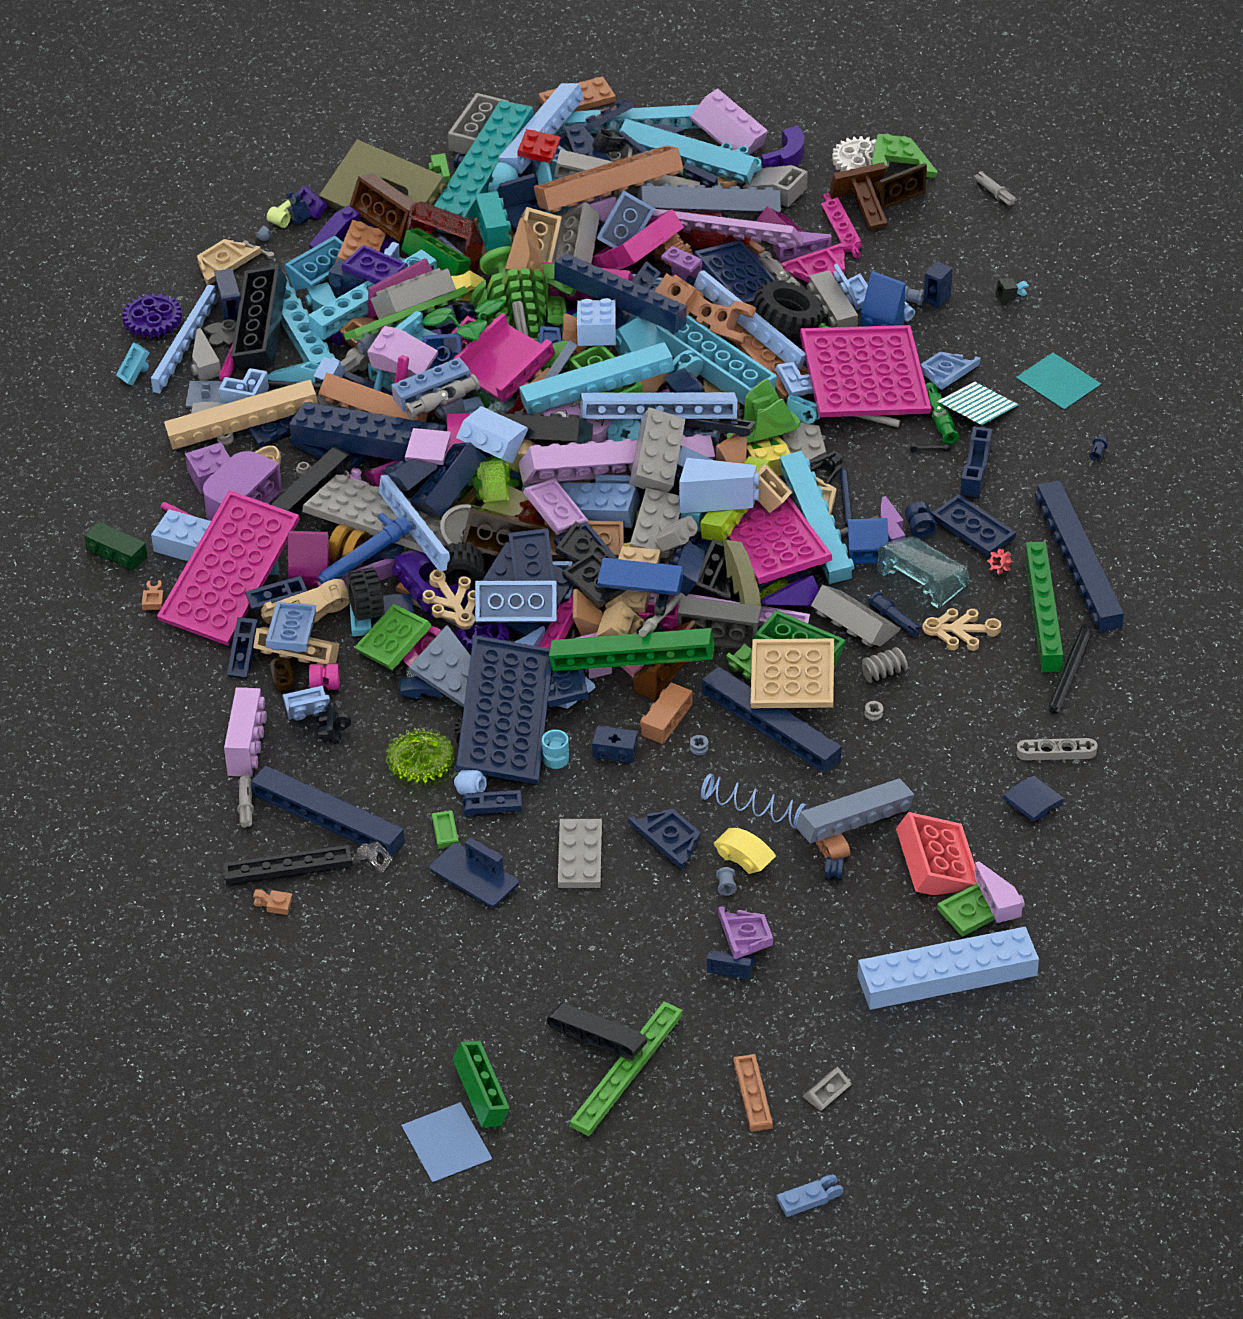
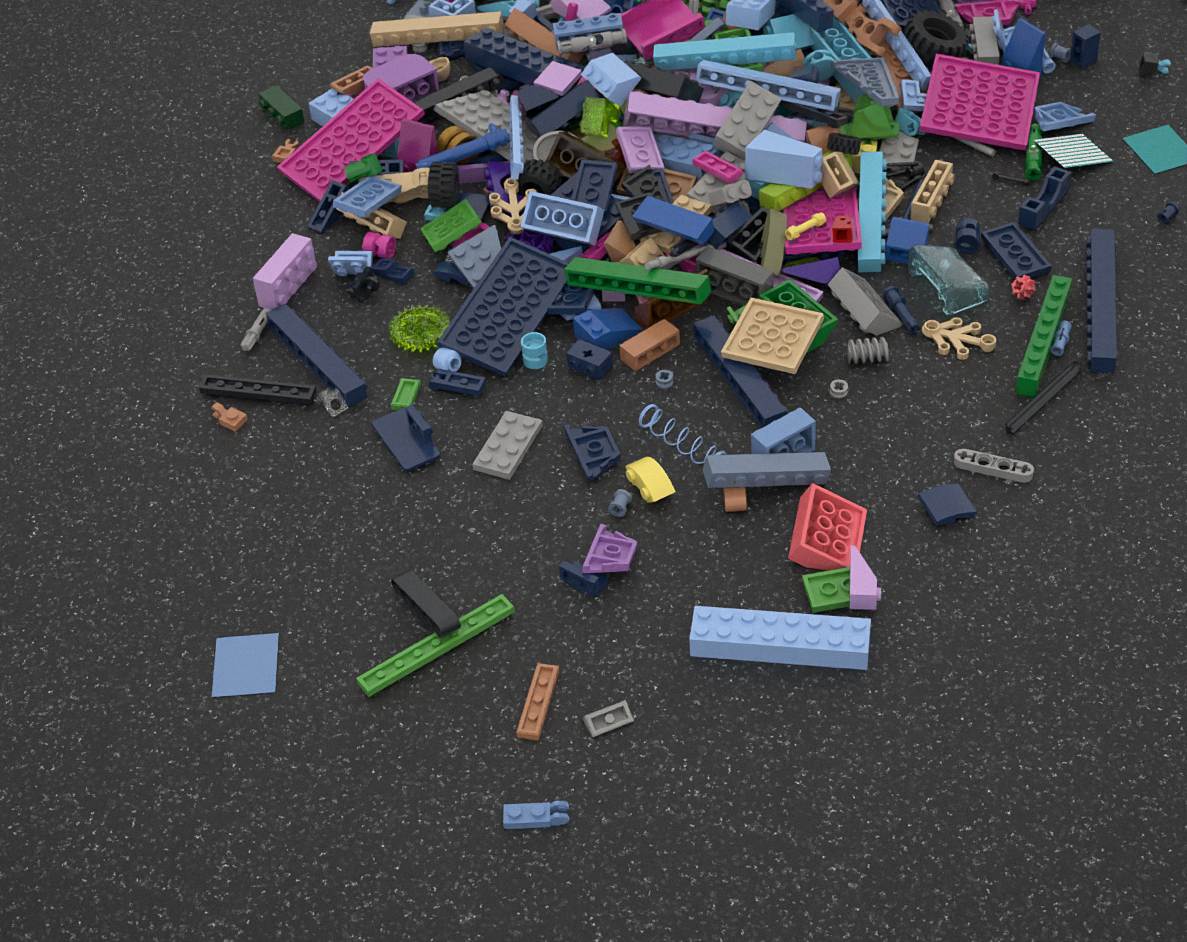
camera: 25 degrees right, 0 degrees up
(190, 497) = (351, 83): none -> nougat slope
(271, 594) = (366, 166): none -> green piece
(282, 674) = (349, 235): dark brown plate -> none
(348, 701) = (391, 271): none -> dark blue slope
(481, 1084) = (297, 621): green brick -> none
(611, 706) = (605, 327): none -> blue slope
(650, 507) = (717, 167): none -> dark pink tile
(754, 371) = (871, 77): none -> sand blue wing
(758, 559) = (794, 232): none -> light yellow bar
(760, 451) = (844, 143): none -> black tyre
(808, 546) = (842, 229): none -> red leg
(834, 867) = (724, 517): dark blue wheel -> none
(857, 772) = (786, 435): none -> medium blue brick
(864, 481) = (932, 191): none -> tan brick
(895, 521) = (939, 229): medium lavender slope -> none
(1061, 605) = (1059, 343): none -> medium blue pin

